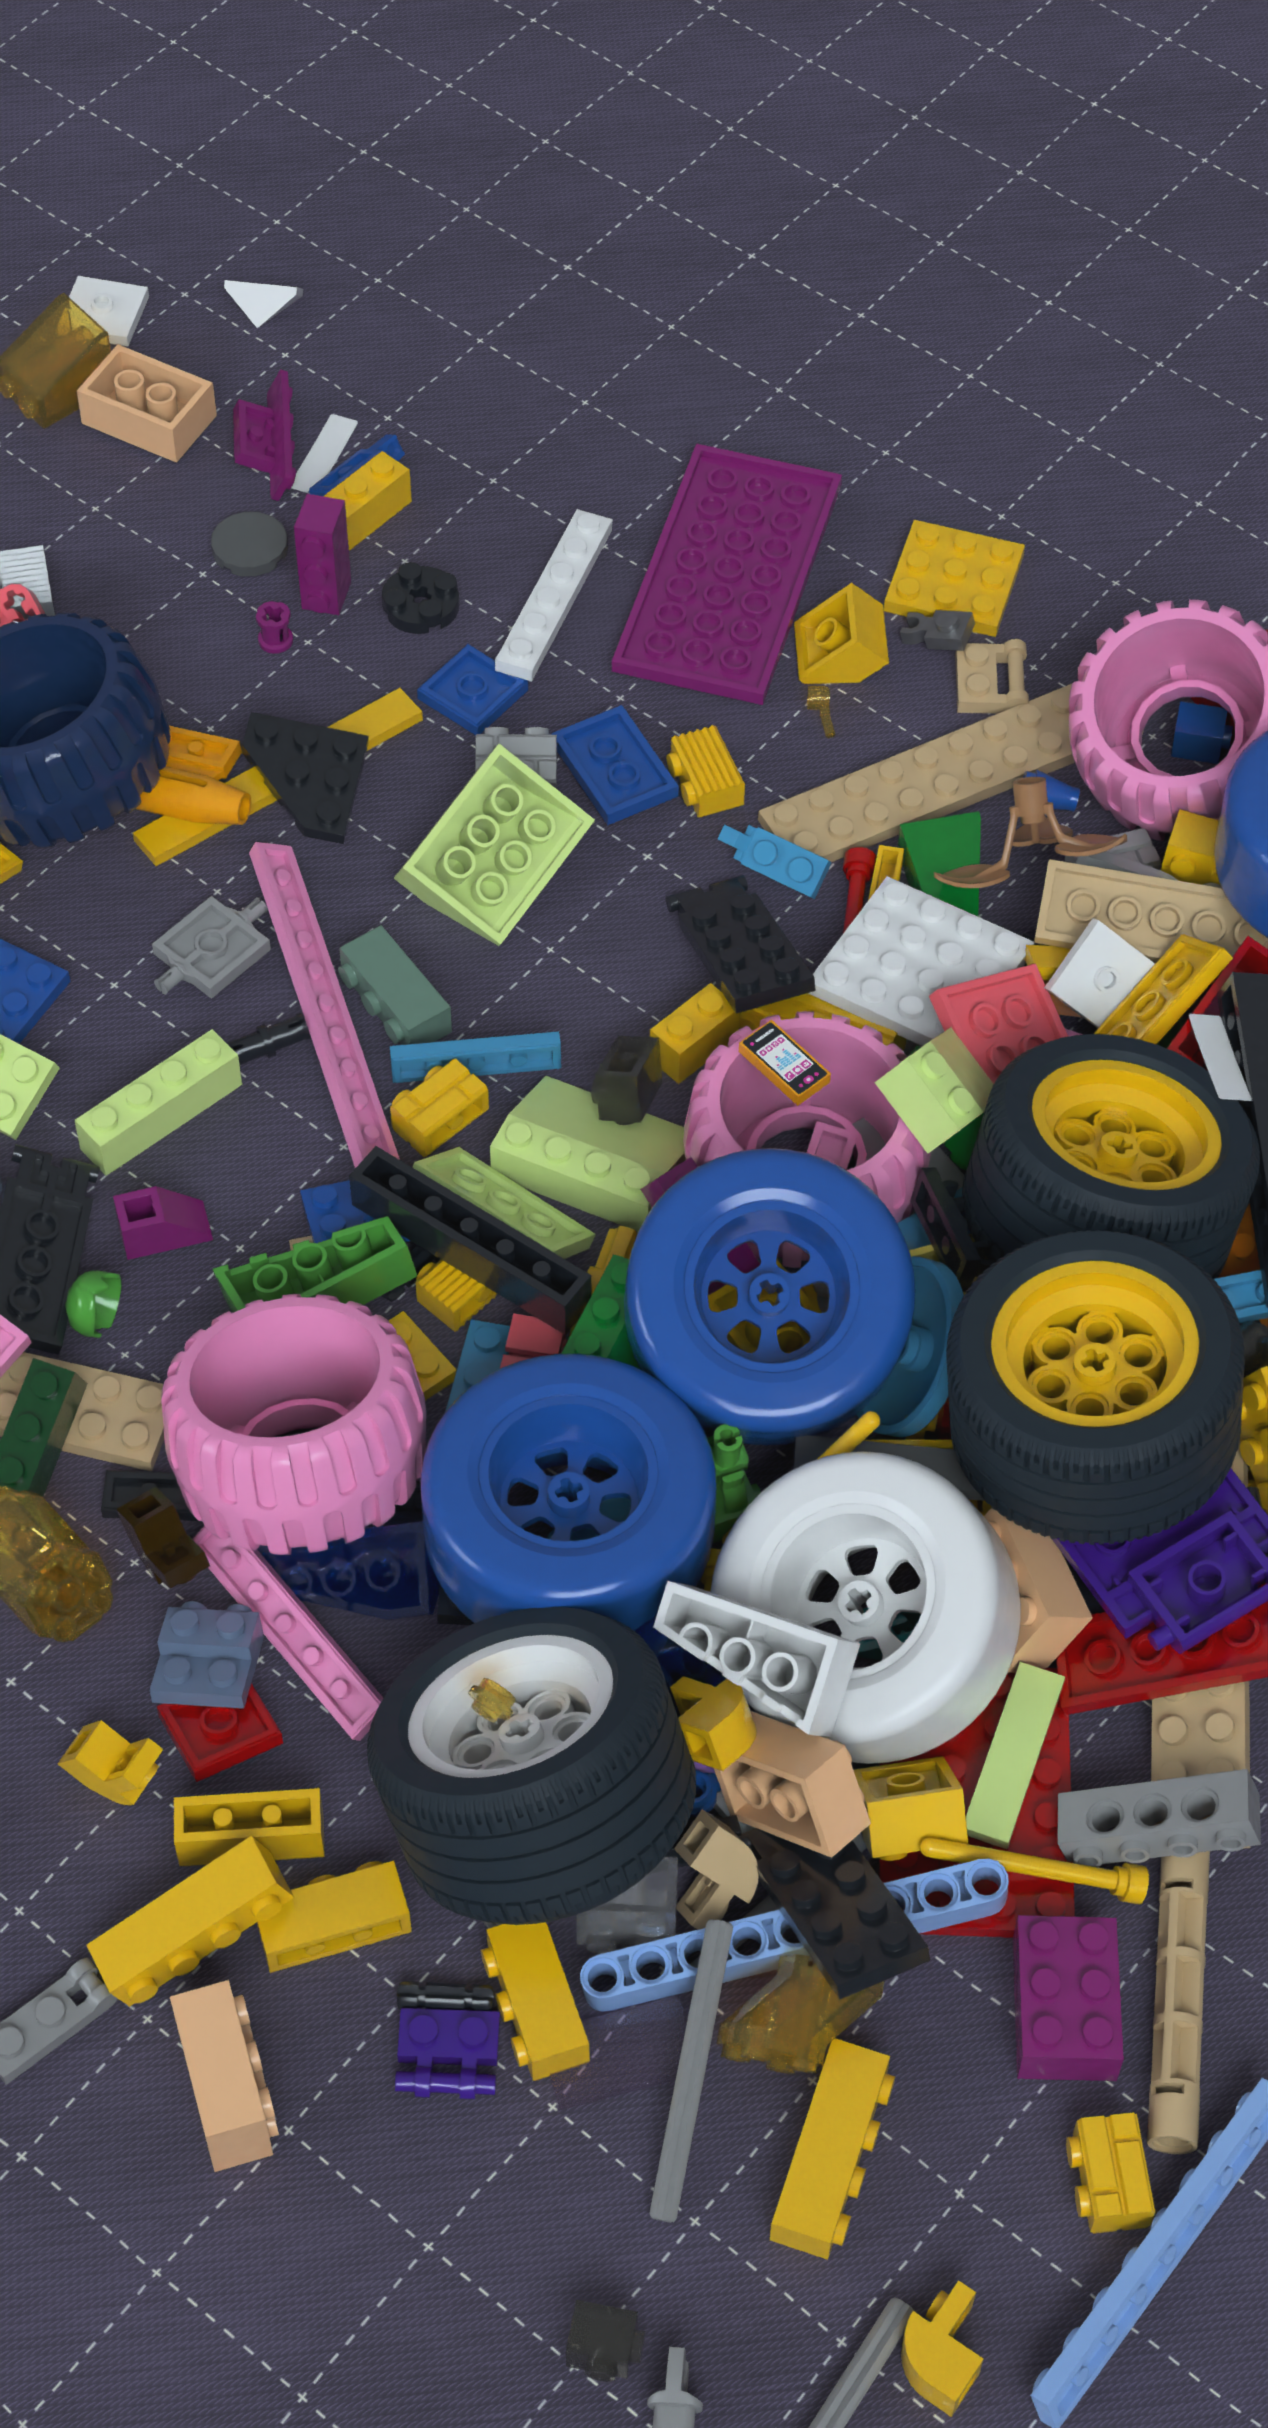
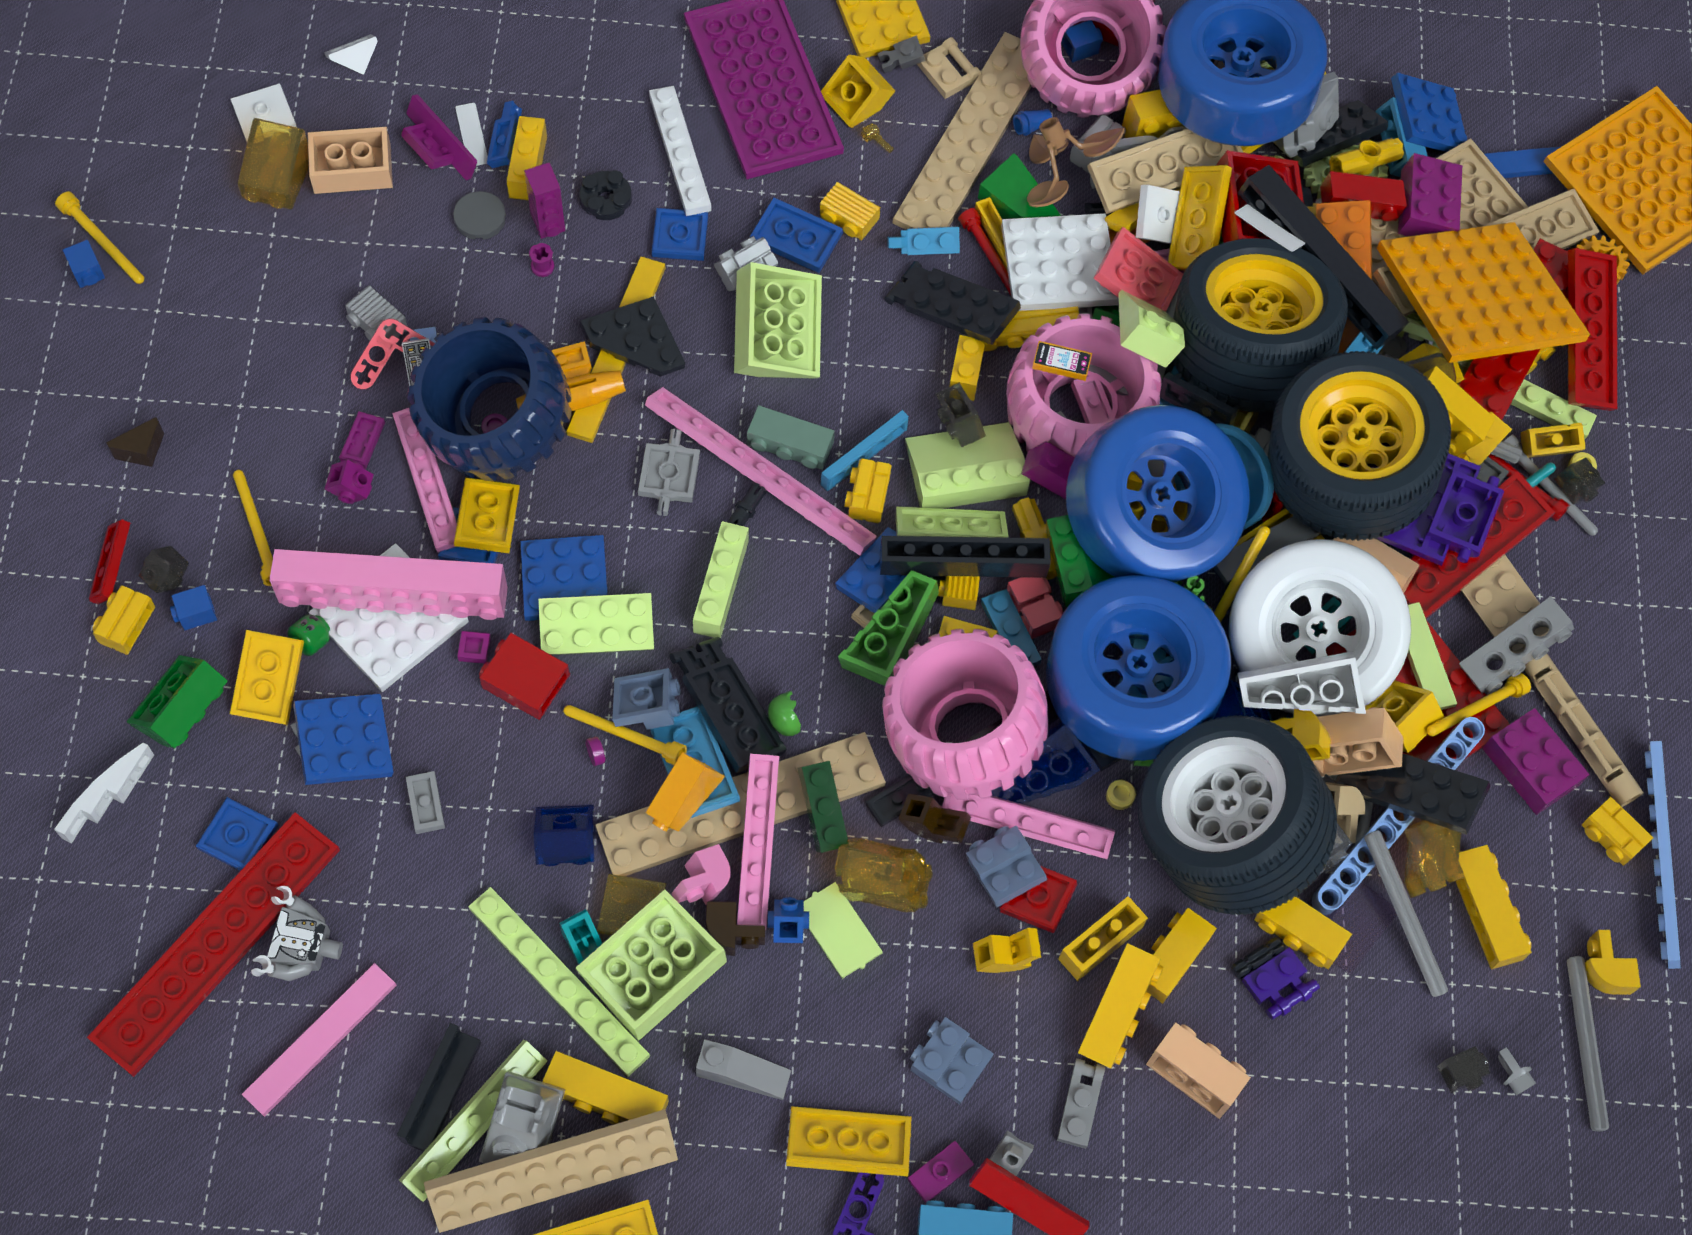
camera: 40 degrees left, 10 degrees up
(160, 1221) = (780, 648): magenta slope -> none
(491, 1700) = (1207, 797): clear yellow plate -> none

